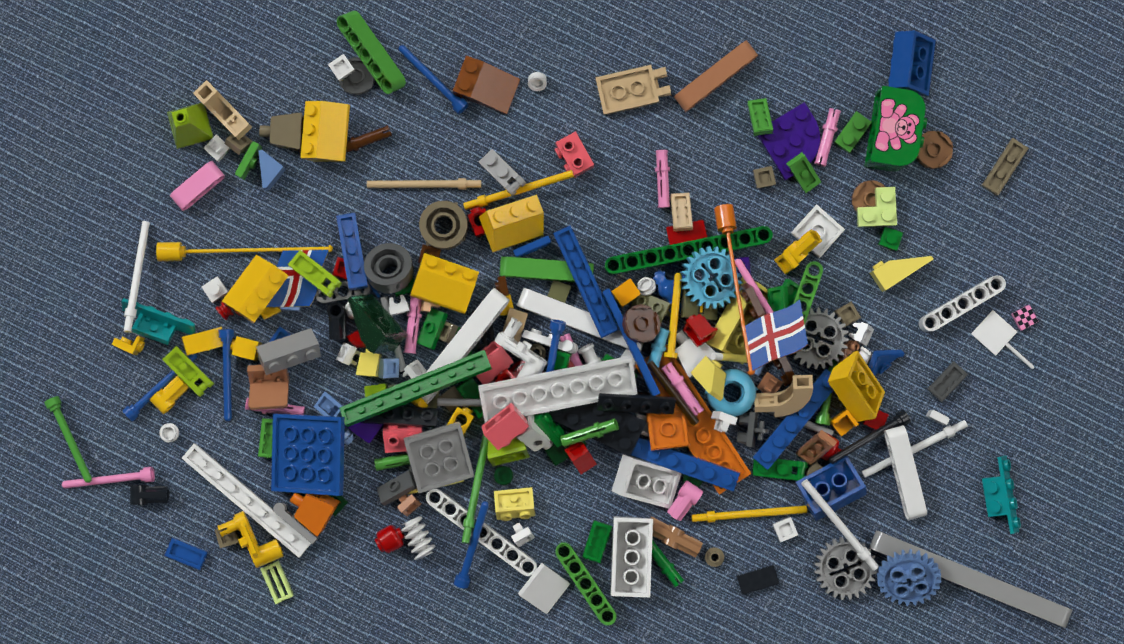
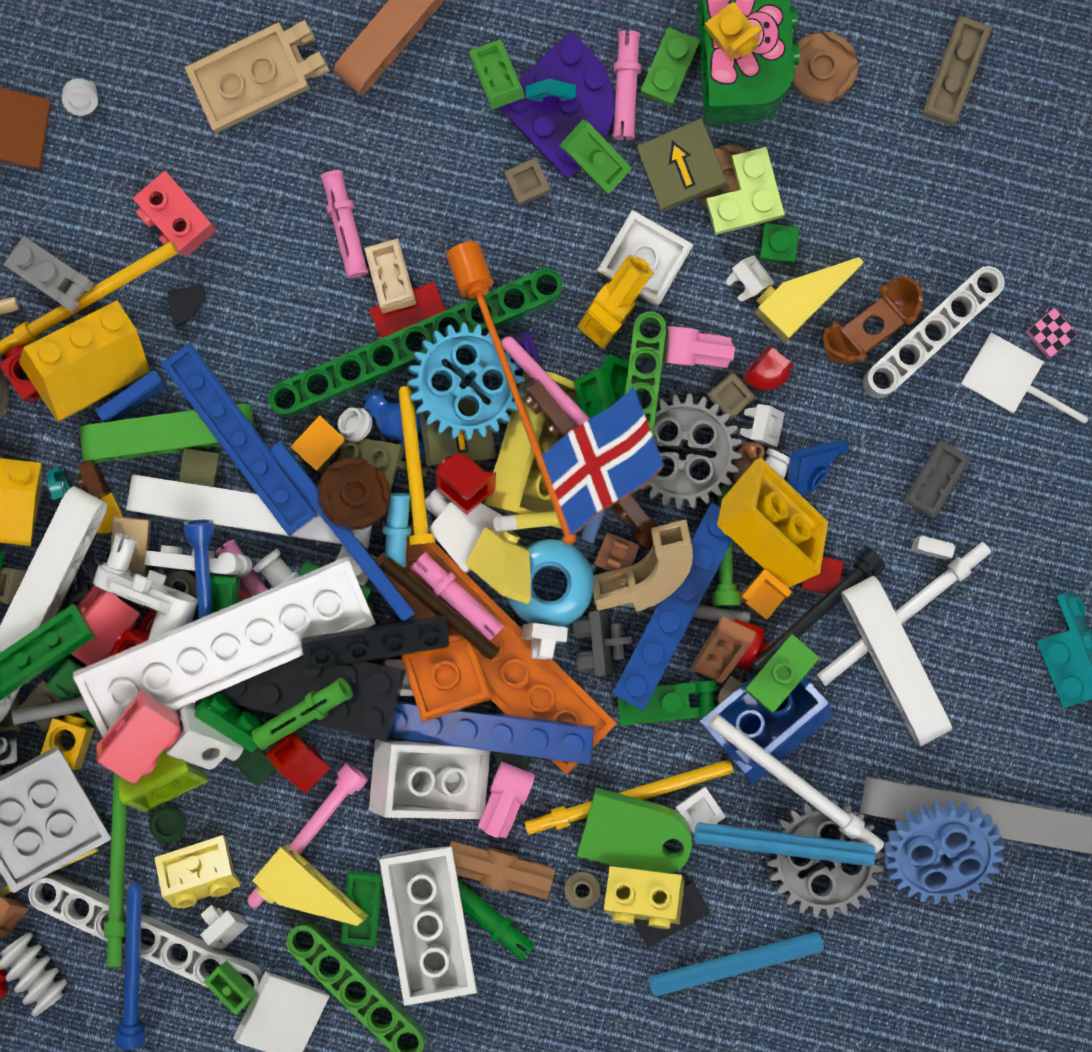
camera: 10 degrees left, 0 degrees up
(484, 284) = (58, 483): none -> teal tile
(523, 566) = (230, 987): none -> bright green piece
(568, 522) = (300, 886): none -> light yellow slope
(569, 203) = (185, 303): none -> black tile
(603, 474) = (349, 781): none -> bright pink piece
(747, 532) = (633, 832): none -> bright green tile
(747, 567) = (644, 896): none -> light yellow brick
(786, 131) = (550, 87): none -> teal tile
(786, 613) = (736, 964): none -> dark azure axle
(827, 555) = (785, 844): none -> dark azure axle
(834, 285) = (690, 347): none -> bright pink piece
(844, 466) = (781, 673): none -> bright green plate
(848, 186) = (682, 165): none -> olive tile
(870, 305) = (768, 370): none -> red piece
(872, 252) = (753, 277): none -> white tile
(891, 125) = (733, 32): none -> yellow bracket
(947, 285) = (898, 306): none -> dark orange piece

